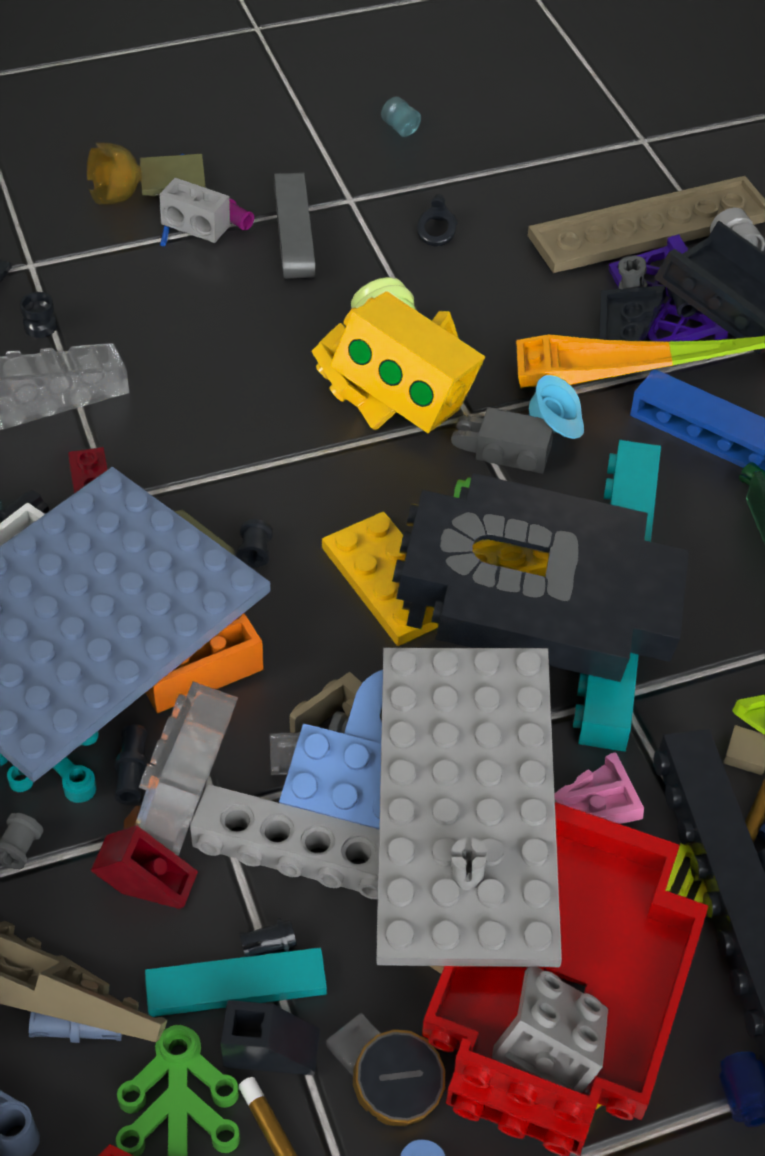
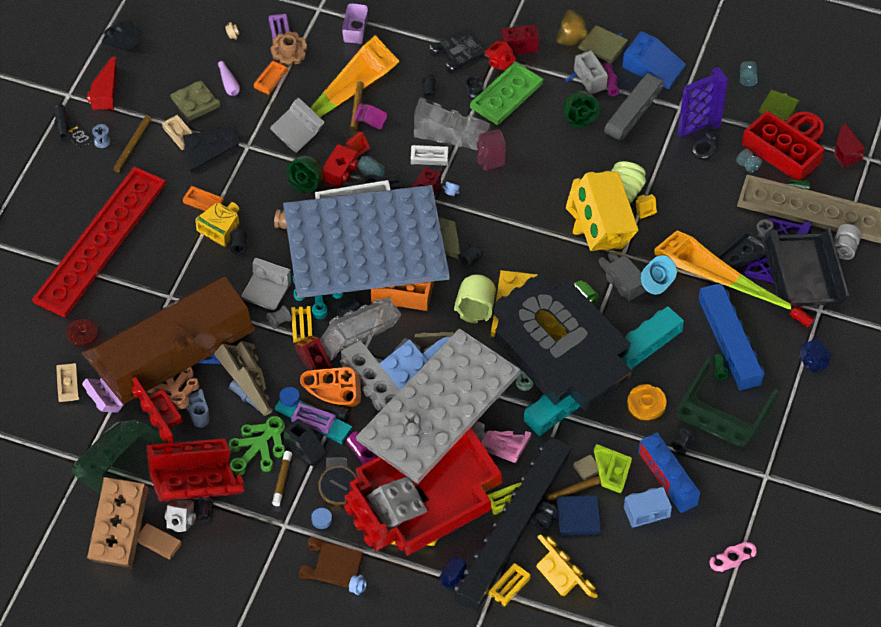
camera: 40 degrees right, 5 degrees up
(41, 252) = (500, 55): none -> red brick
(48, 805) = (301, 311): none -> yellow tile
(49, 222) = (521, 39): none -> dark red brick
(53, 443) = (431, 157): none -> white tile
(92, 298) = (506, 93): none -> bright green plate
(132, 466) = (451, 188): none -> light blue plate
(150, 375) = (491, 149): none -> clear pink brick
(163, 972) = (289, 397): none -> blue tile
(225, 259) = (581, 109): none -> dark green cylinder
(238, 965) = (312, 420): none -> medium lavender tile
(242, 905) = (338, 389): none -> orange beam
(254, 156) = (651, 56): none -> blue slope
(333, 599) = (475, 298): none -> yellowish green cylinder
(361, 973) = (363, 453): none -> magenta piece
(404, 155) = (714, 101): none -> dark purple fence
(473, 137) = (779, 105): none -> clear neon green piece
(519, 210) = (749, 161): none -> clear light blue wheel
(539, 168) = (784, 144): none -> red brick
(608, 200) = (799, 183): none -> dark green pin
(609, 134) = (848, 147): none -> dark red slope
(721, 595) = (646, 402): none -> light orange tile

